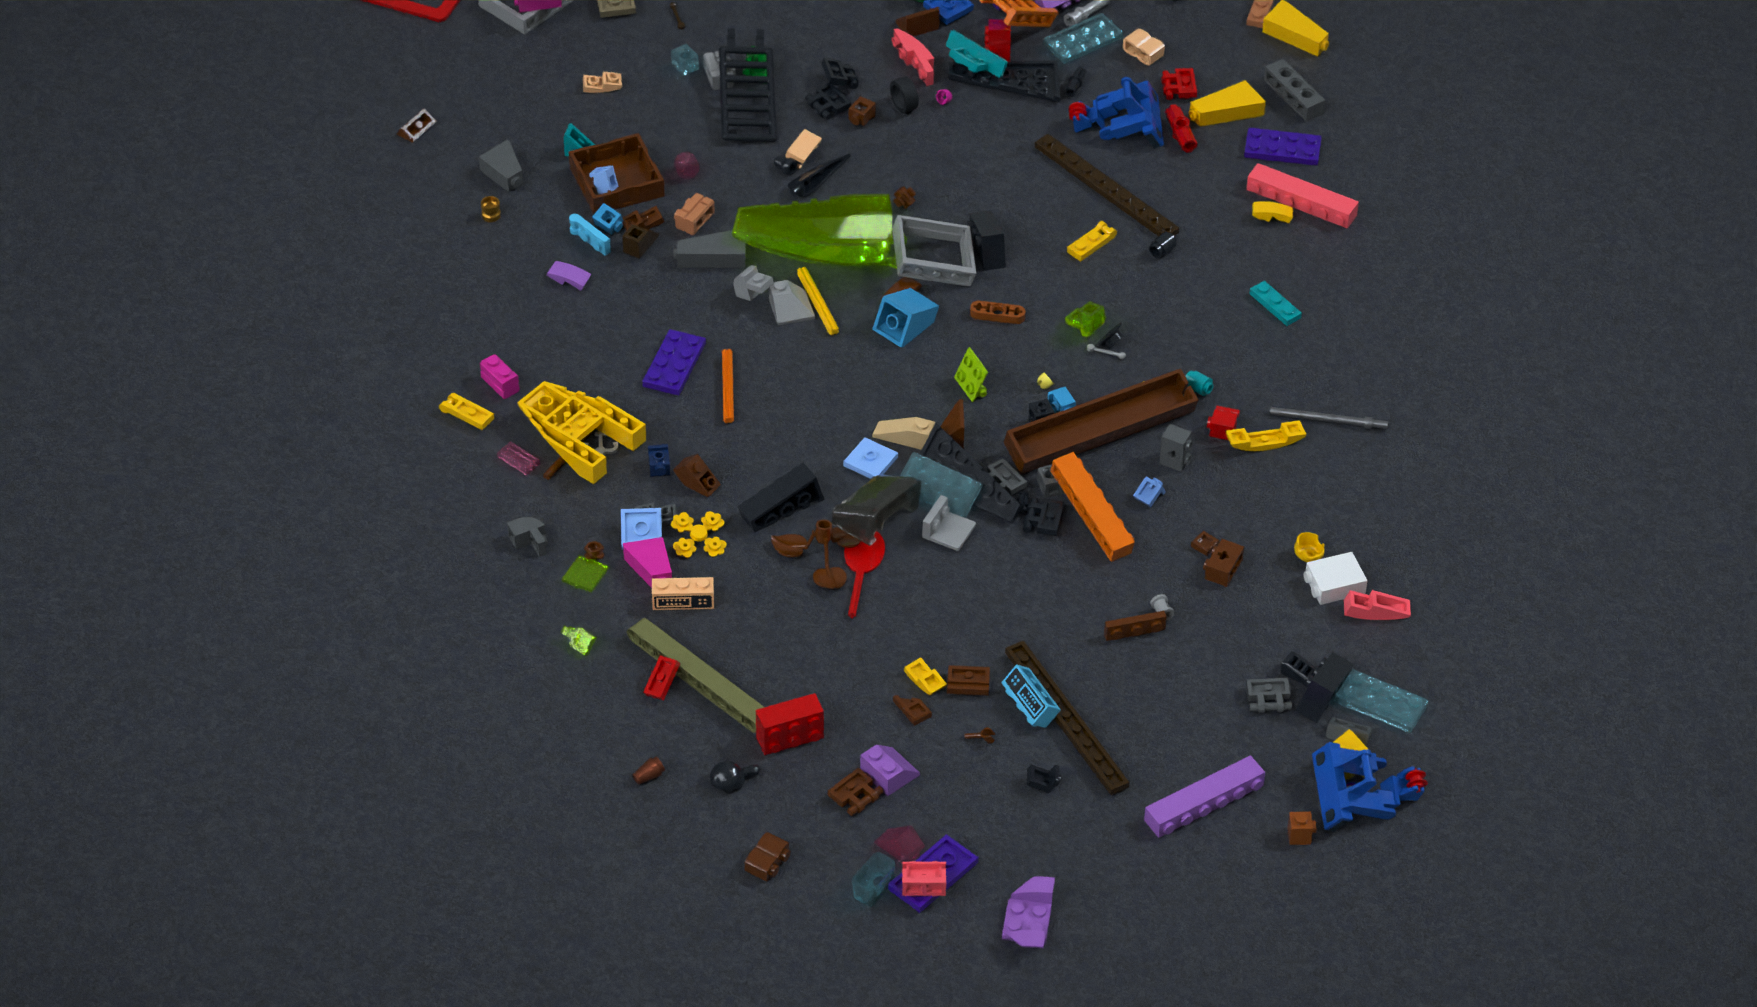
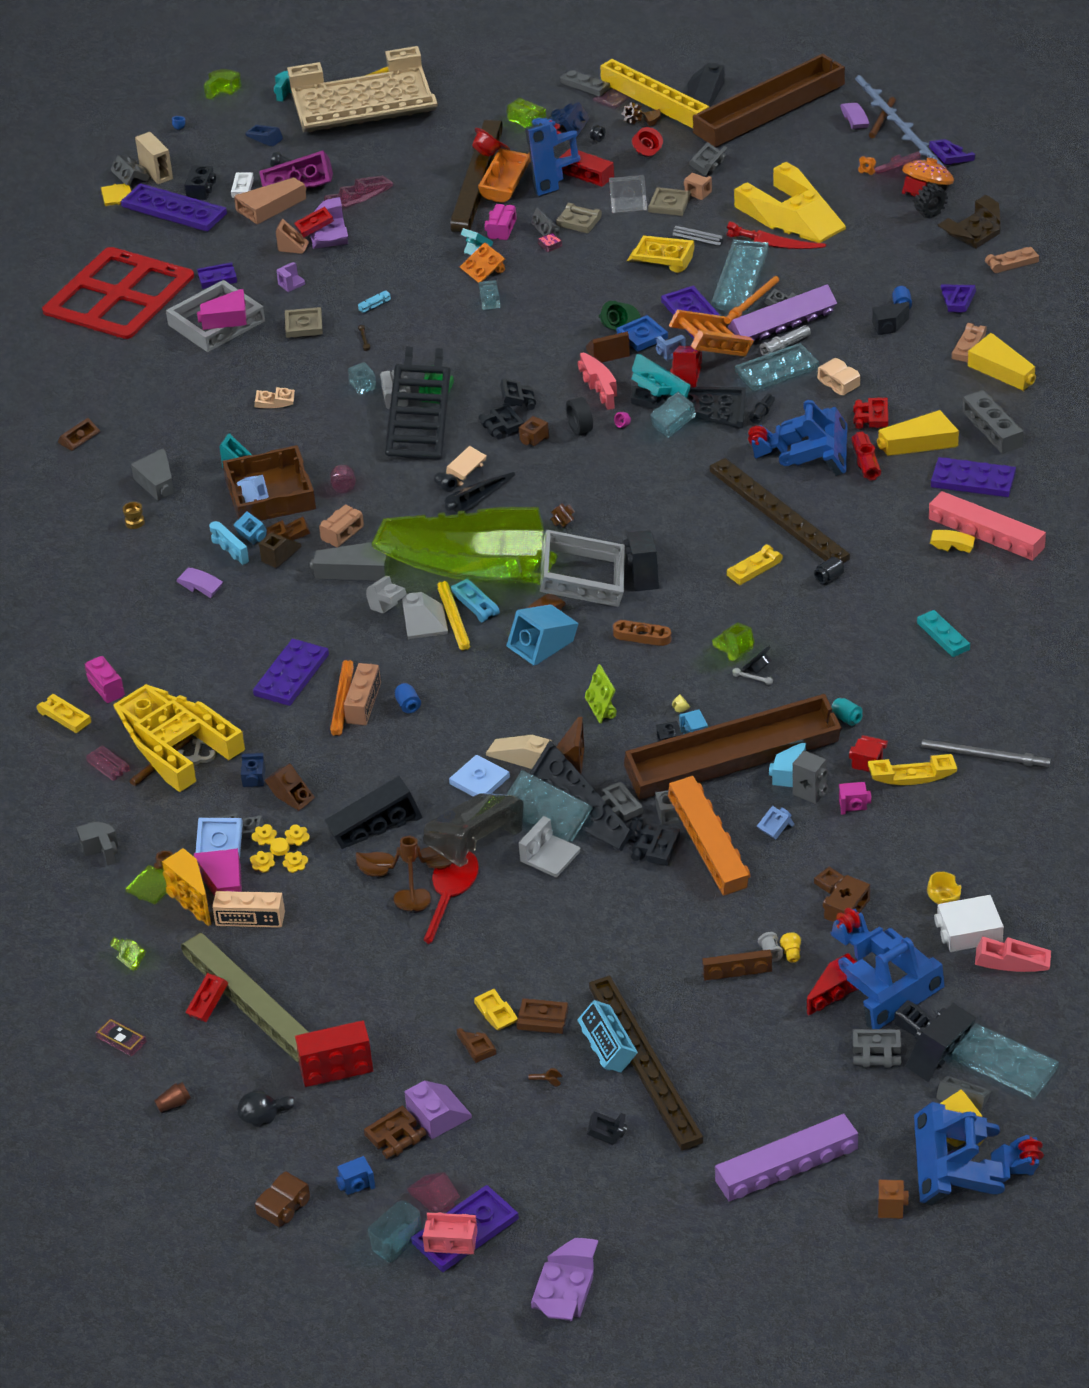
camera: 10 degrees right, 5 degrees down
(588, 717) = (121, 1037): none -> tile
(623, 573) = (186, 884): none -> light orange slope
(747, 382) = (362, 694): none -> nougat brick
(790, 384) = (407, 698): none -> blue brick
(828, 832) = (355, 1176): none -> blue brick
(835, 285) = (475, 600): none -> dark azure plate
(978, 21) = (667, 347): none -> medium blue bracket
(993, 91) = (673, 414): none -> clear light blue brick
(1151, 437) = (782, 767): none -> medium azure slope
(1180, 606) = (791, 944): none -> yellow piece
(1216, 464) = (853, 797): none -> dark pink brick
(1227, 635) = (830, 987): none -> red slope
(1271, 647) = (885, 998): none -> blue container

